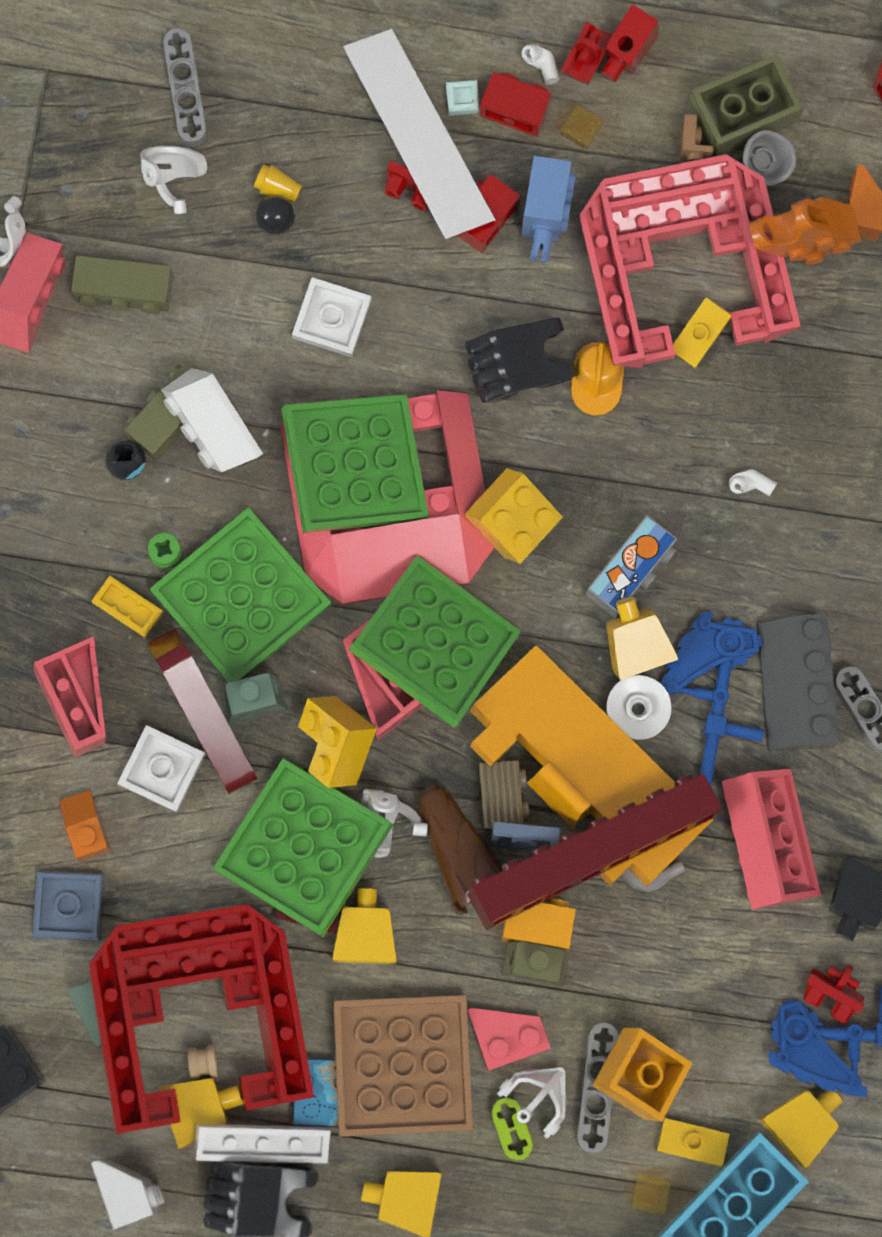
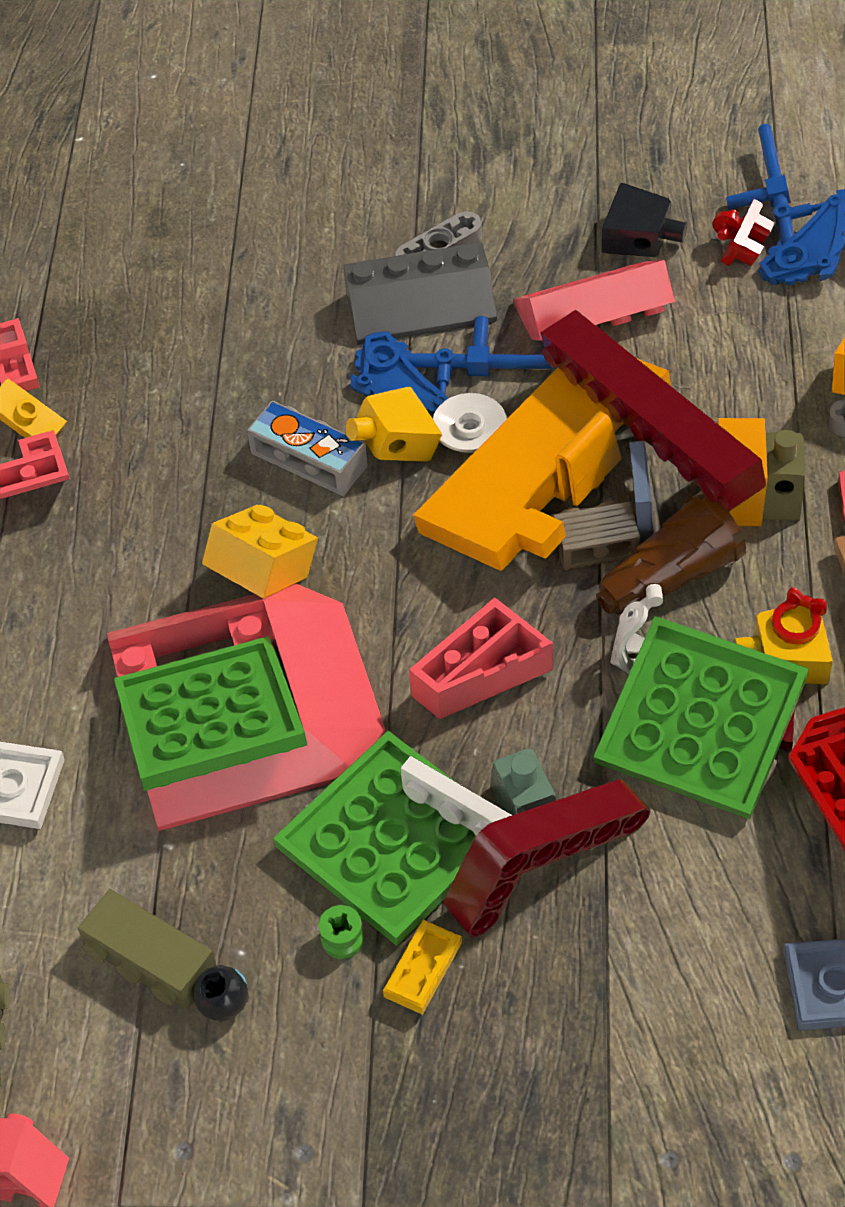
camera: 90 degrees left, 25 degrees down
(73, 694) = (557, 1003): coral wedge -> none
(84, 826) = (728, 971): orange slope -> none
(161, 769) = (632, 894): white plate -> none
(210, 420) = (161, 871): white slope -> none
(244, 643) = (448, 797): none -> white plate
(341, 739) = (557, 682): yellow brick -> none
(380, 955) = (794, 599): none -> red piece
(435, 641) = (424, 603): bright green plate -> none
(516, 360) = (68, 576): black piece -> none
(597, 381) = (80, 511): light orange piece -> none
(750, 480) = (195, 359): white arm -> none

